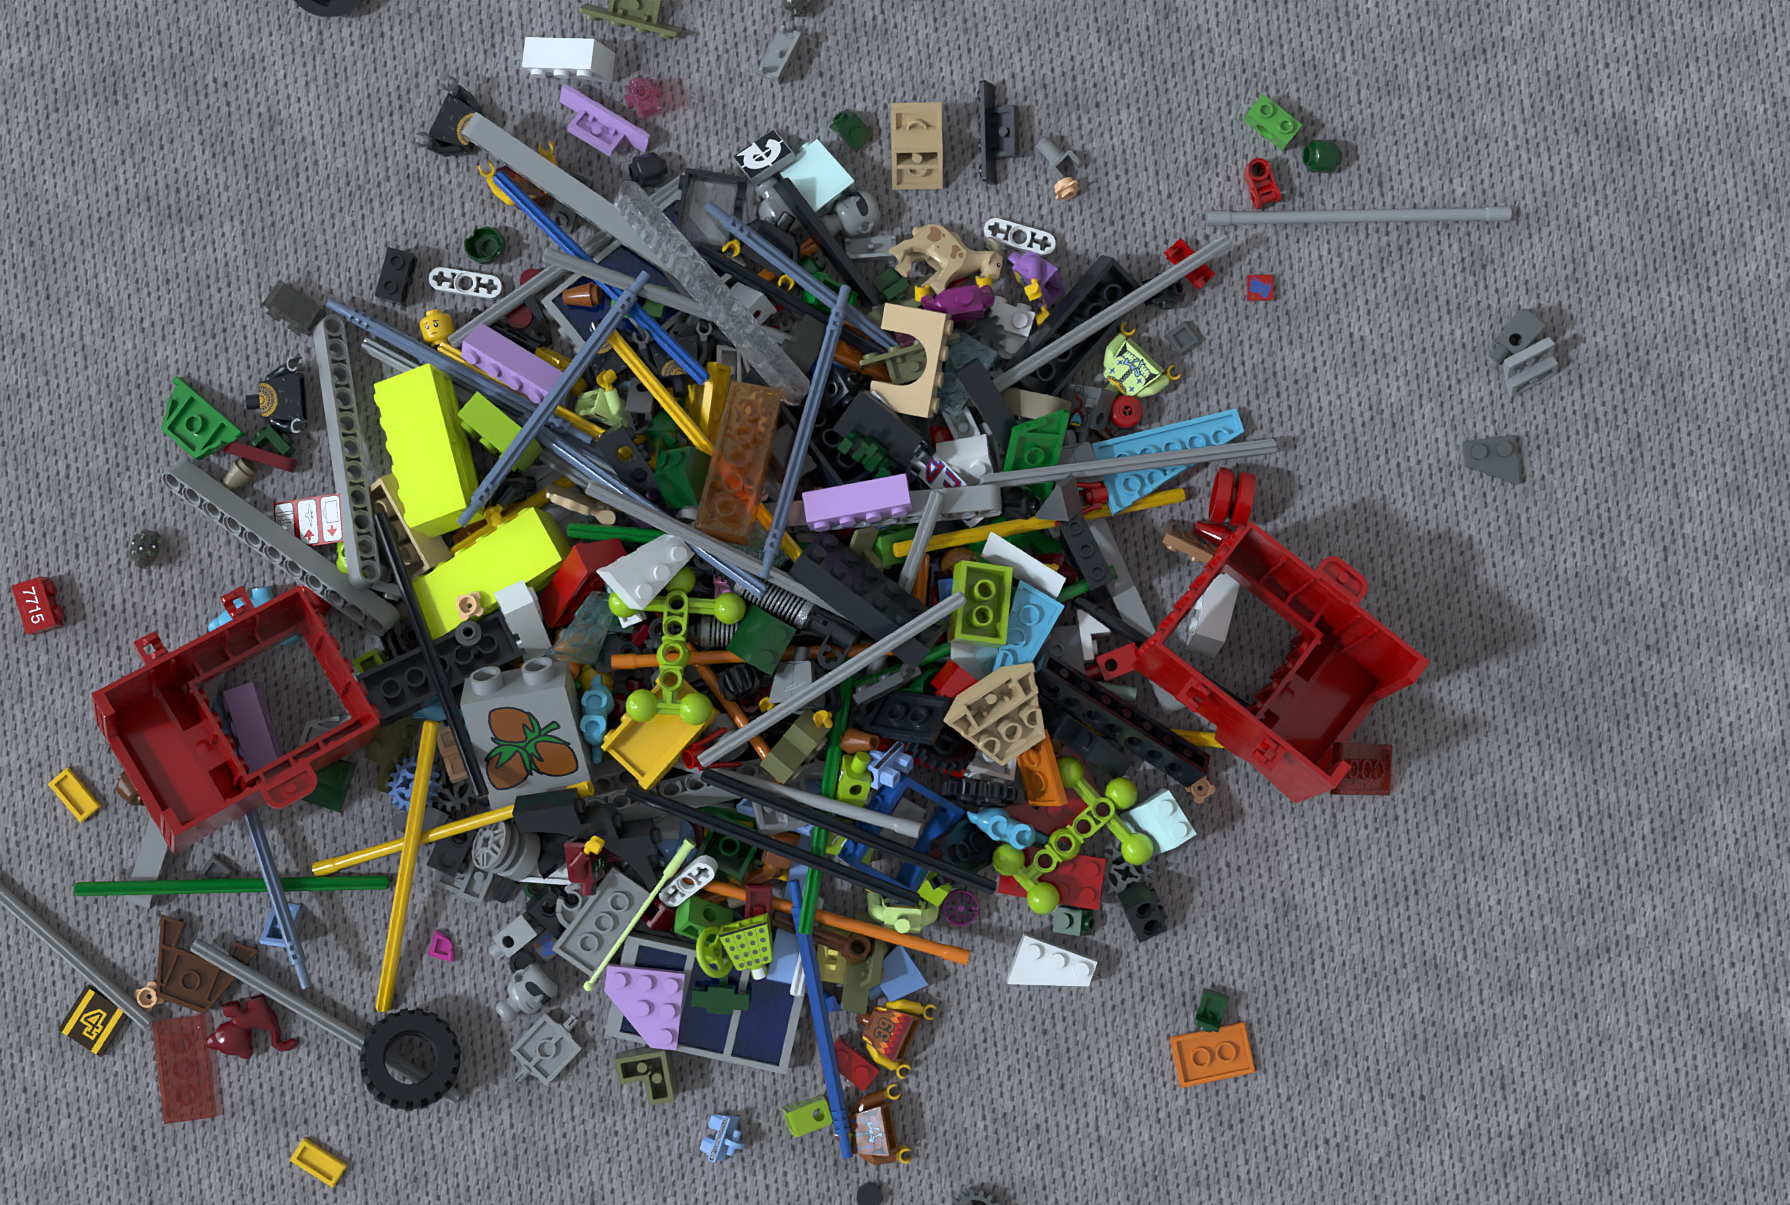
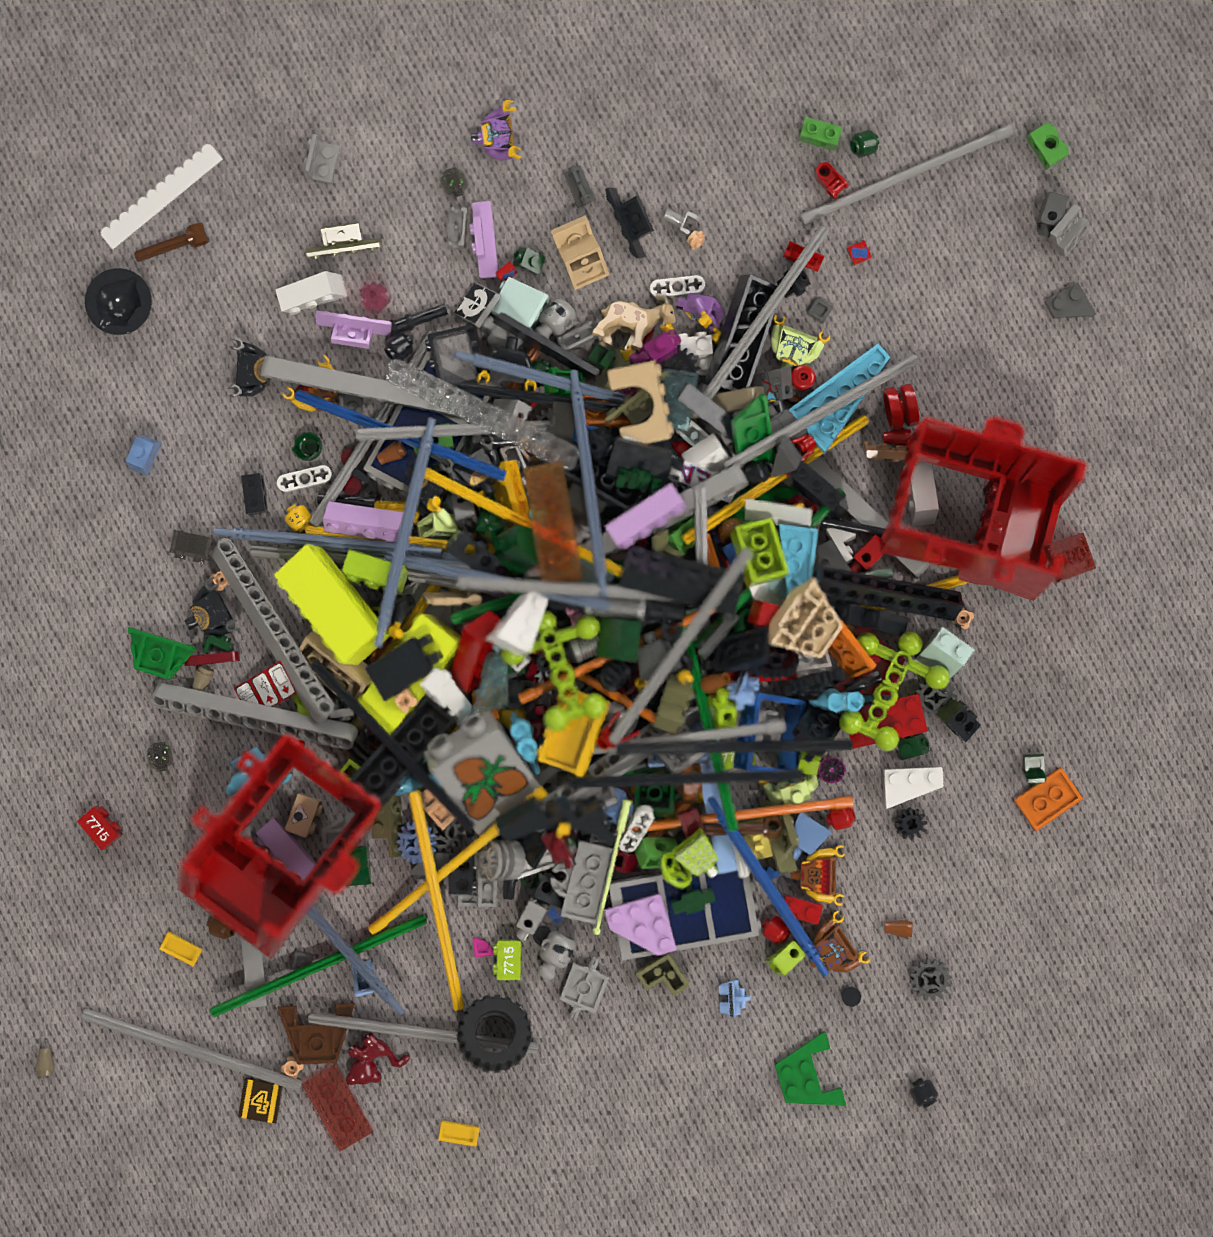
camera: 20 degrees left, 0 degrees up
(280, 171) = (142, 454): none -> medium blue torso
(292, 694) = (303, 815): none -> tan brick
(307, 361) = (217, 577): none -> light nougat plate
(467, 975) = (508, 959): none -> lime brick
(473, 639) = (412, 726): dark grey plate -> none
(483, 562) = (403, 666): none -> black tile
(674, 145) = (409, 321): none -> black pin
(807, 81) = (484, 242): none -> lavender bracket
(809, 1076) = (775, 930): none -> red head
(817, 131) = (506, 271): none -> red tile
(947, 973) = (841, 818): none -> red head
(950, 64) = (579, 186): none -> dark grey hinge
(965, 1138) = (900, 928): none -> dark orange cone
(1021, 1015) = (917, 821): none -> black gear
(1043, 817) = (863, 683): none -> black axle
(1541, 265) = (1048, 156): none -> bright green brick

